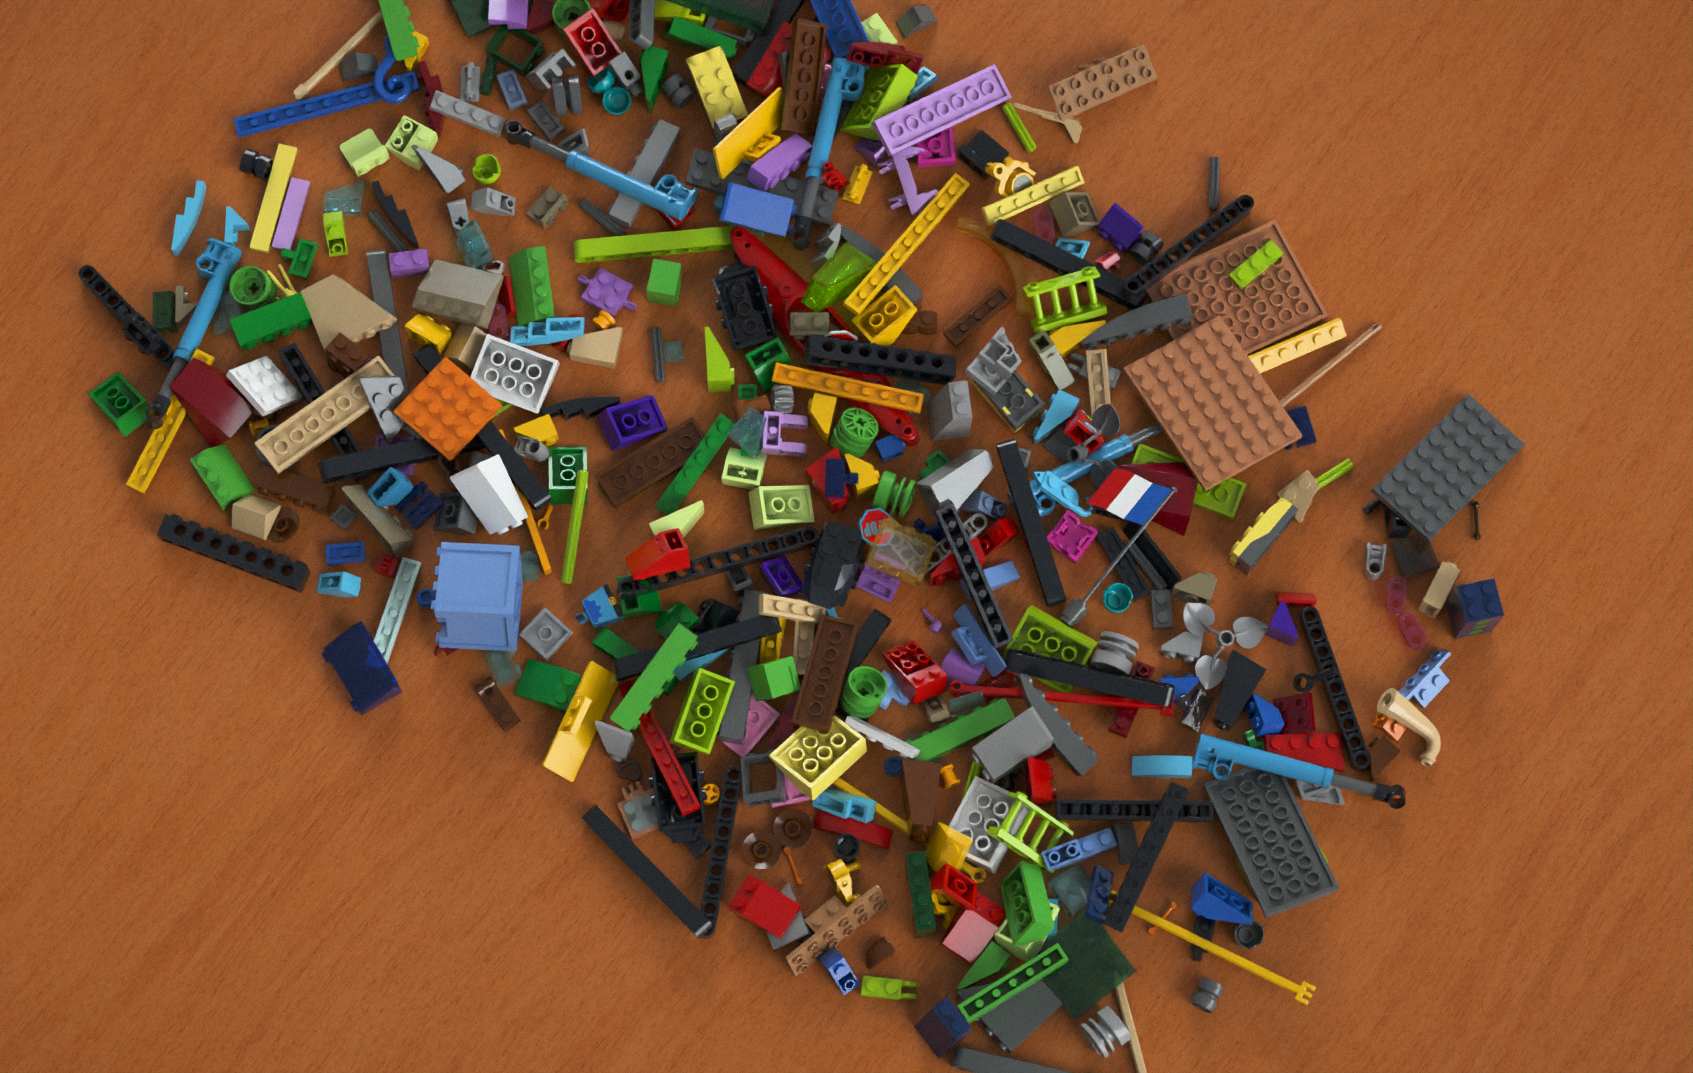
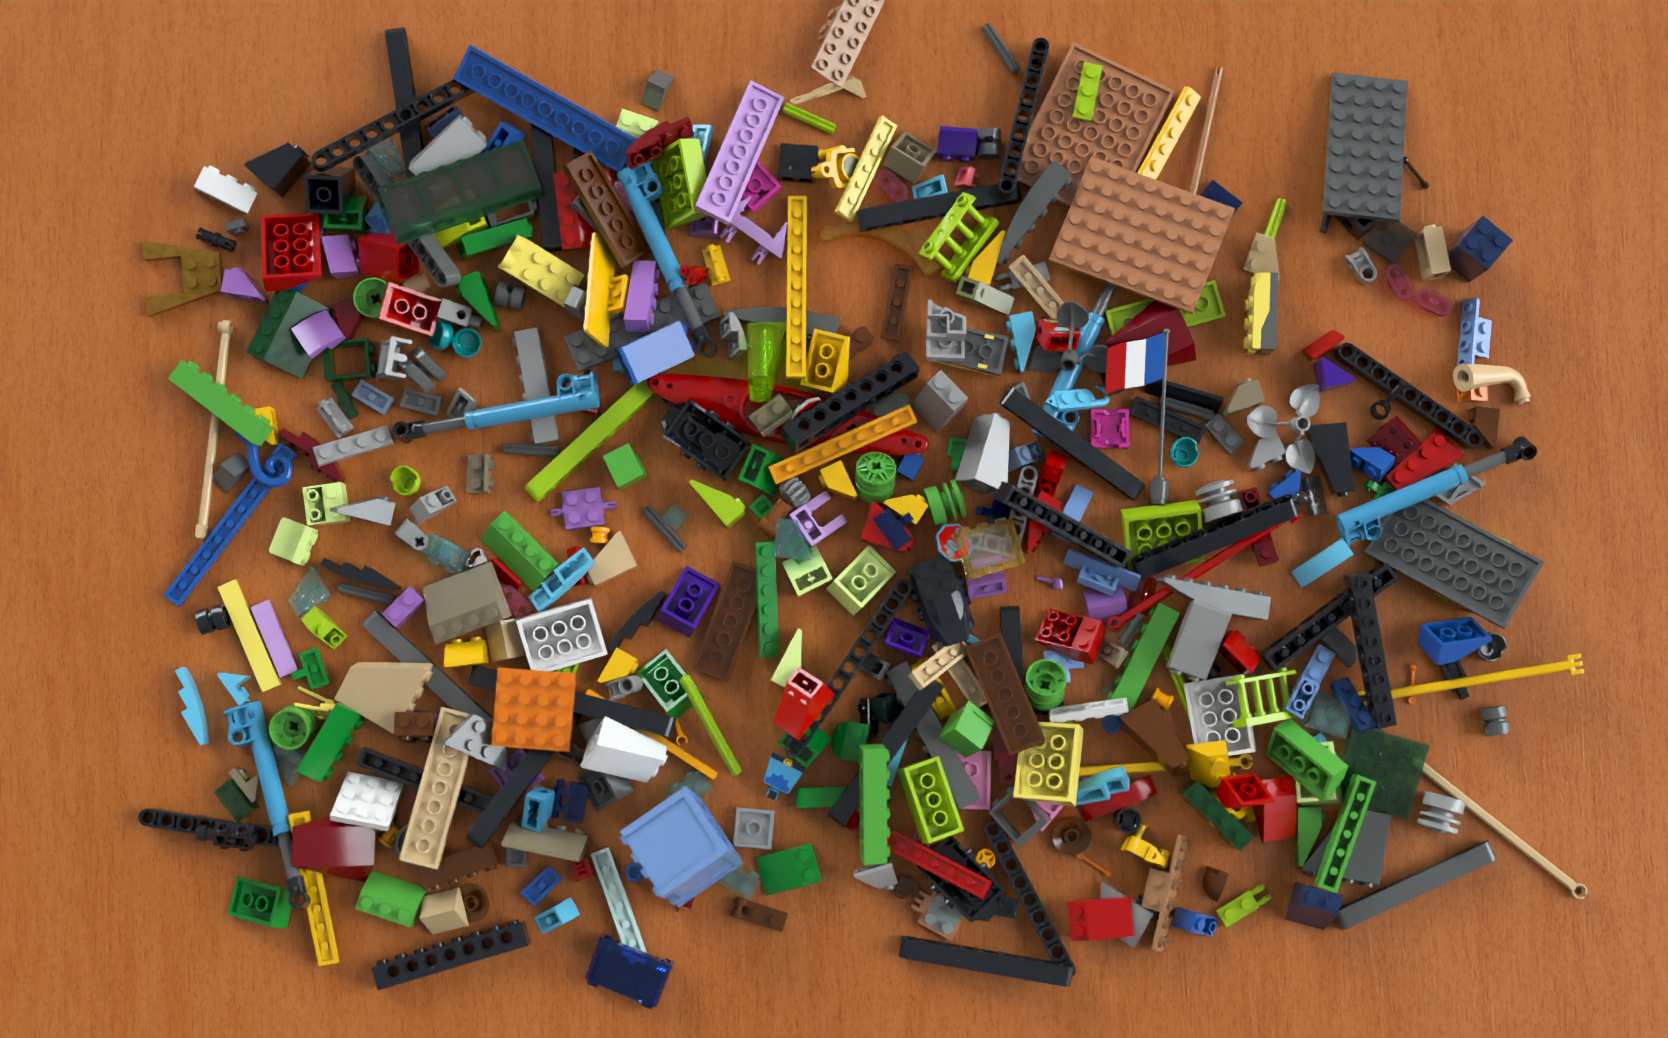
camera: 30 degrees left, 10 degrees up
(579, 721) = (838, 879): yellow bracket -> none
(759, 840) = (1070, 872): reddish brown dish -> none

